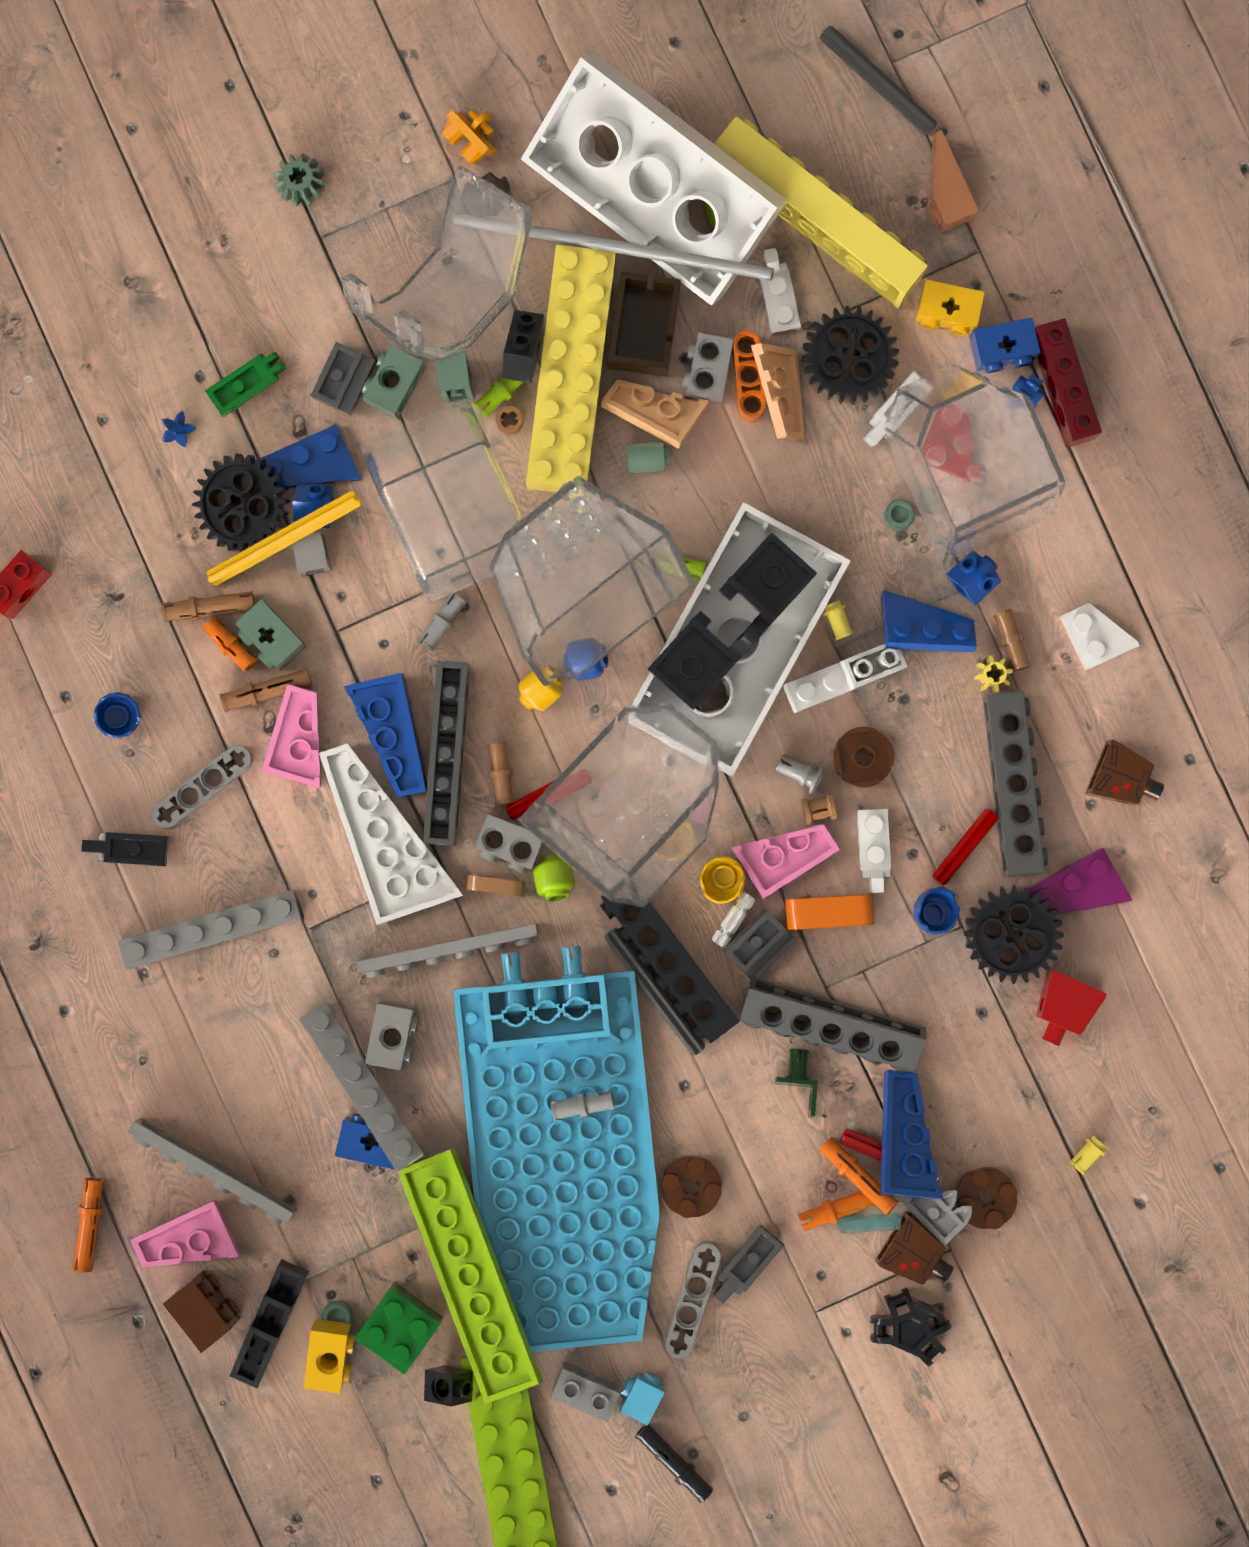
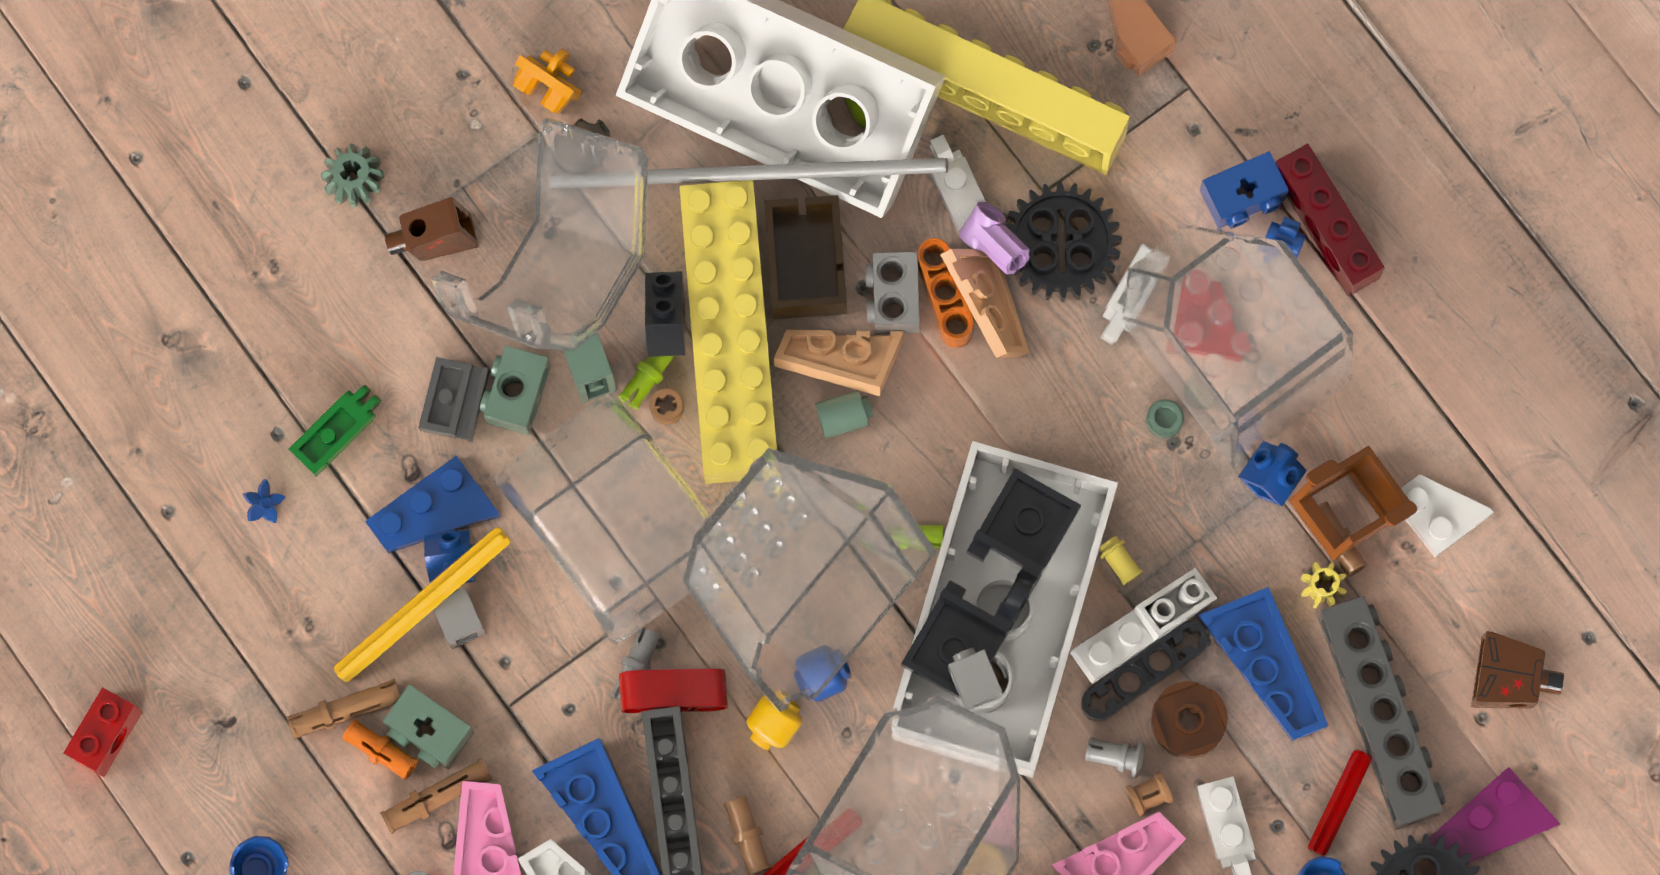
camera: 10 degrees left, 10 degrees down
(228, 479) = (338, 549): black gear -> none
(354, 239) = (434, 231): none -> reddish brown torso
(466, 647) = (658, 689): none -> red beam
(701, 694) = (974, 678): none -> light grey brick
(792, 336) = (987, 233): none -> lavender piece
(835, 707) = (1147, 675): none -> black beam
(924, 627) = (1226, 546): blue wing -> none
(934, 719) = (1264, 654): none -> blue wing
(964, 304) = (1185, 153): yellow brick -> none
(1052, 604) = (1375, 485): none -> dark orange piece

